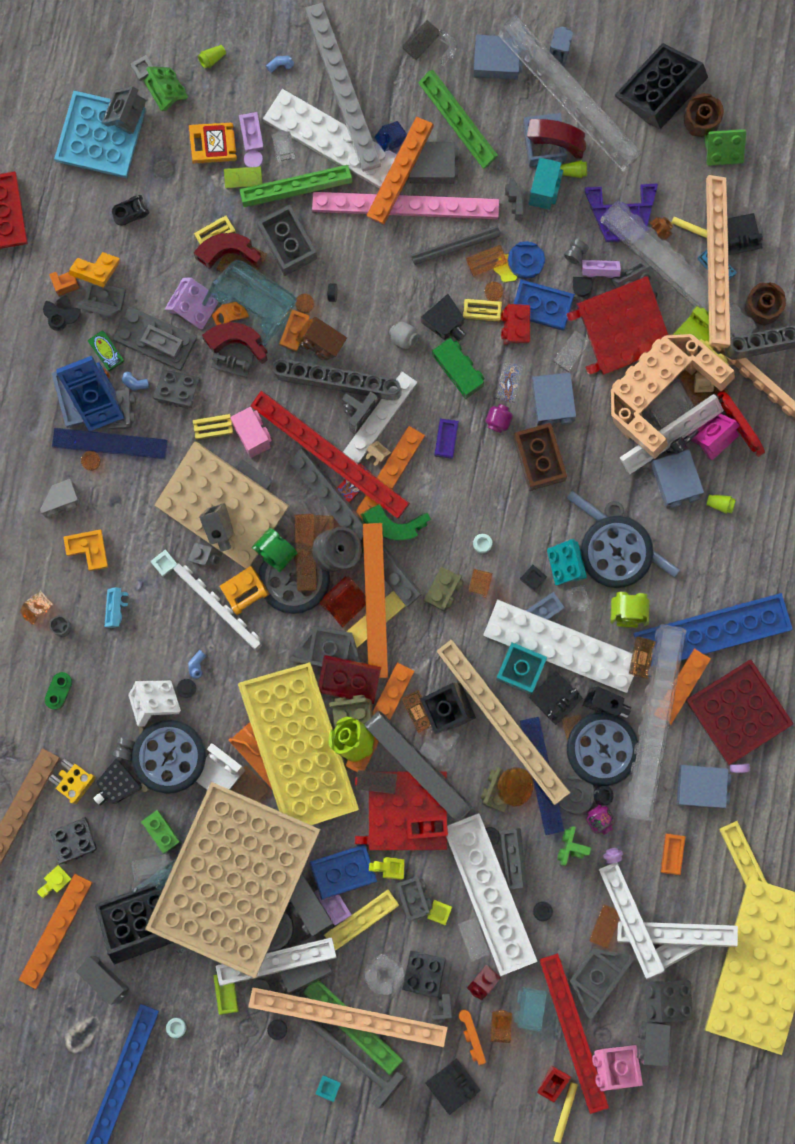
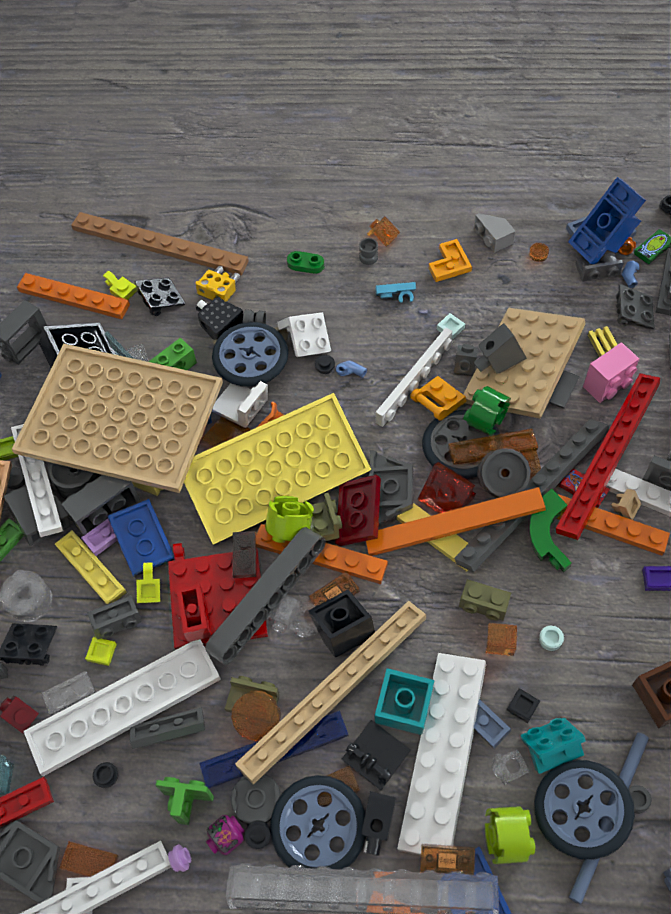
camera: 85 degrees right, 20 degrees down
(109, 443) = (561, 265): clear blue tile -> none
(493, 835) = (196, 701): black tile -> none

